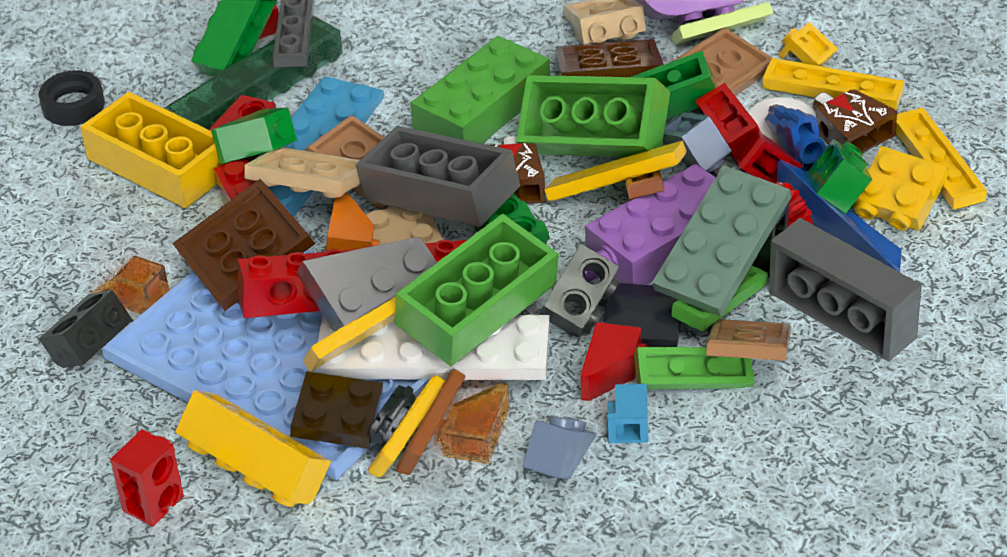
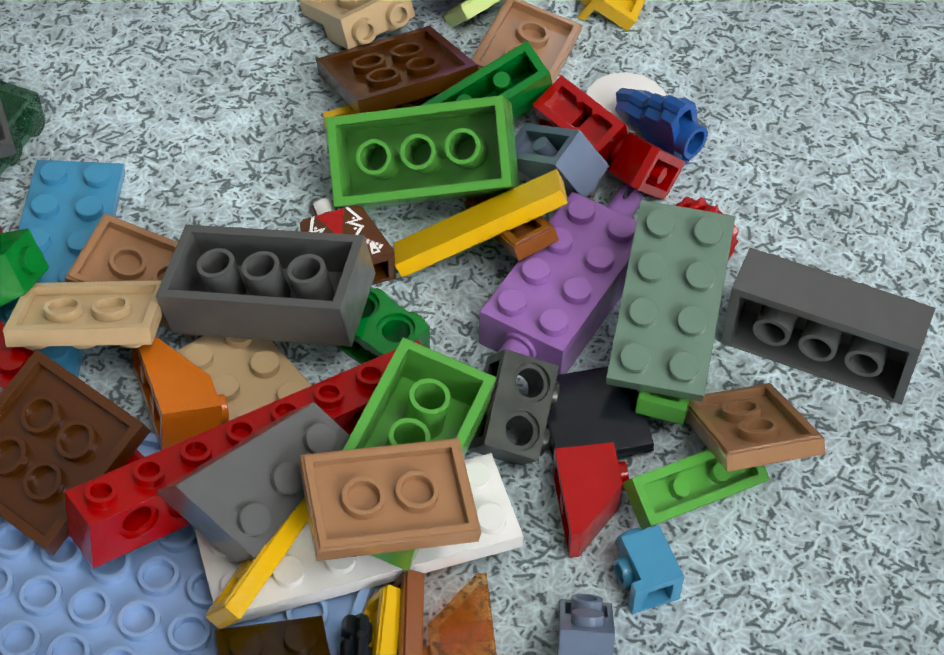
camera: 25 degrees left, 10 degrees up
(443, 304) = (388, 499): none -> medium nougat tile
(479, 92) = (254, 148): bright green brick -> none
(814, 80) = (663, 44): yellow plate -> none
(840, 174) = (746, 168): green brick -> none
(843, 226) = (763, 229): blue wedge -> none
(854, 119) = (717, 85): reddish brown torso -> none
(901, 189) = (809, 169): yellow plate -> none
(929, 143) = (826, 117): yellow plate -> none

